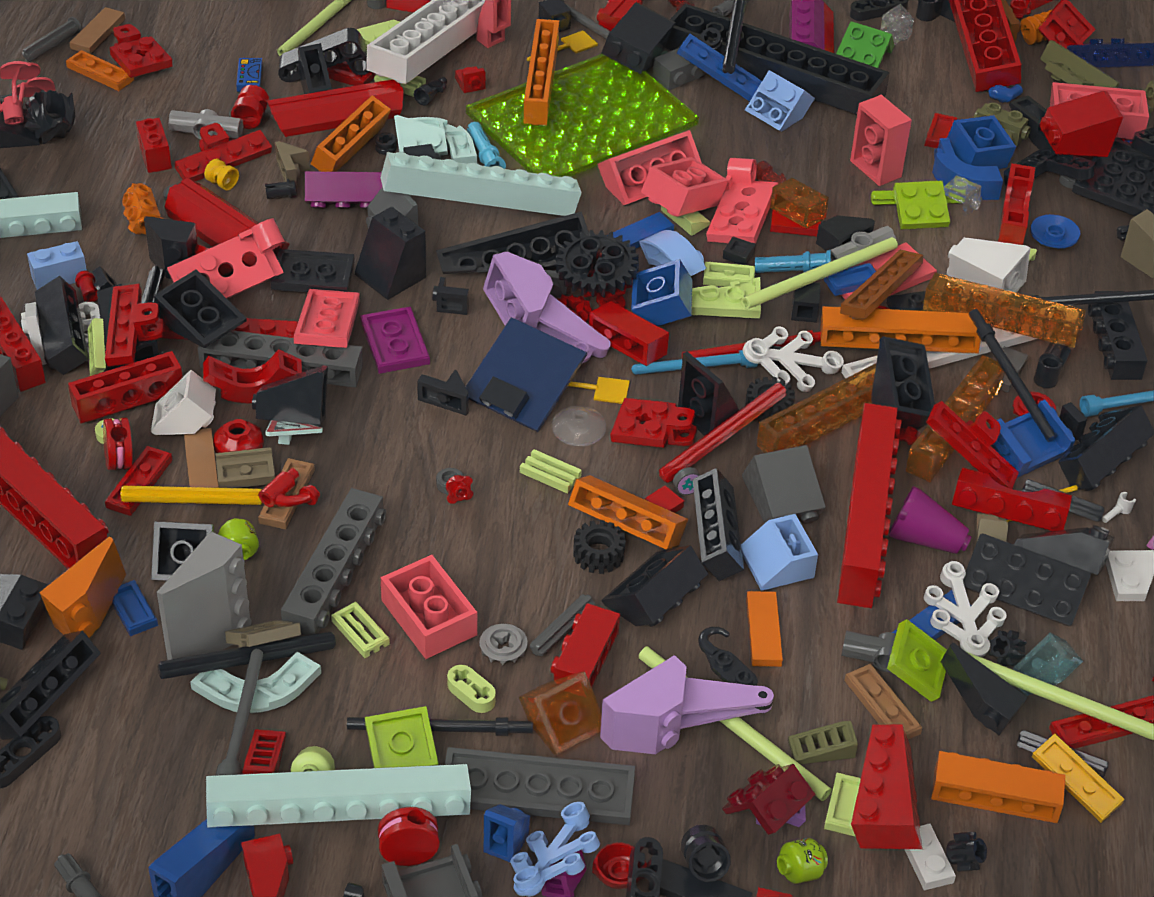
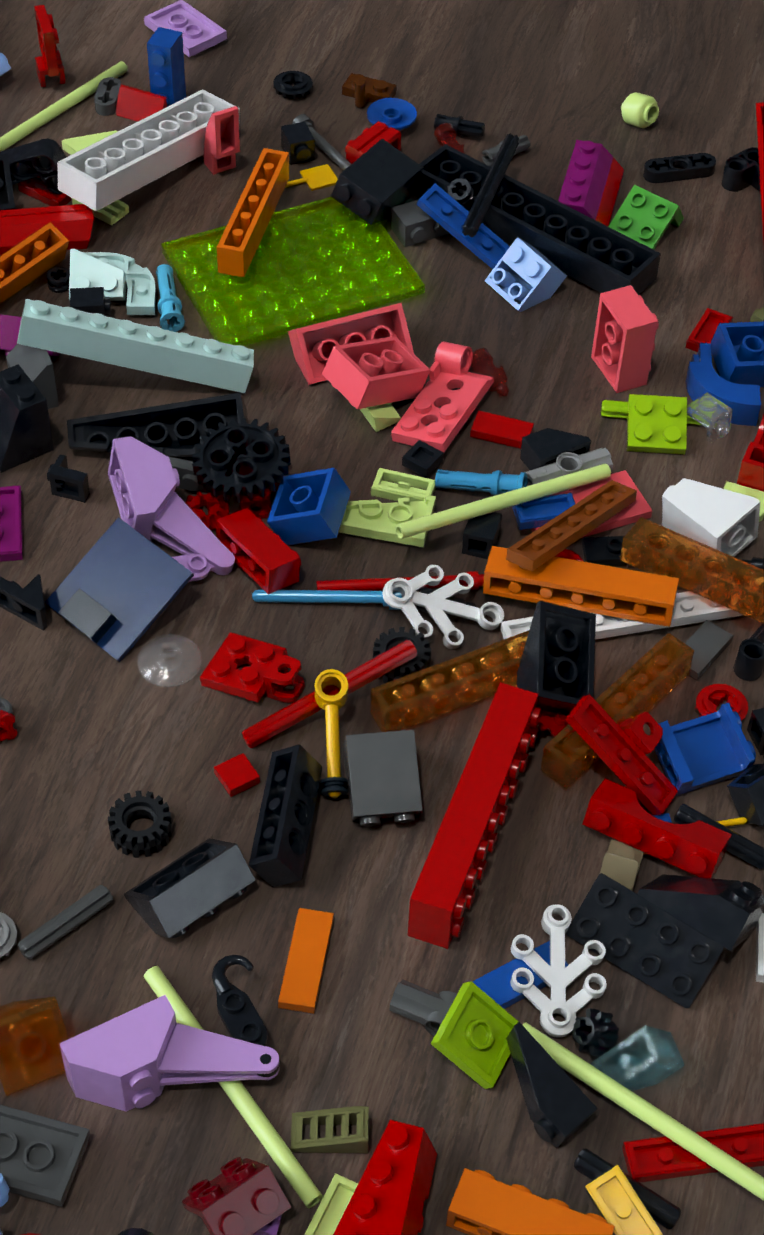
camera: 10 degrees right, 5 degrees up
(426, 92) = (122, 223): black piece -> none
(471, 79) = (180, 211): red bracket -> none
(552, 467) = (107, 696): yellowish green tile -> none
(588, 644) = (82, 959): red brick -> none
(606, 389) = (217, 618): yellow piece -> none
(628, 512) = (184, 784): orange brick -> none
(644, 229) = (315, 422): blue tile -> none
(671, 246) = (340, 449): light blue brick -> none
(684, 480) = (265, 746): tile -> none
(704, 394) = (315, 643): black slope -> none
(745, 500) = (334, 784): none -> yellow piece
(780, 553) = (350, 864): light blue slope -> none
(799, 202) = (508, 406): clear orange brick -> none
(881, 700) = (422, 1084): medium nougat tile -> none
(898, 23) = (692, 193): clear brick -> none
(929, 524) = (543, 849): magenta cone -> none
(987, 335) = (677, 608): black bar -> none

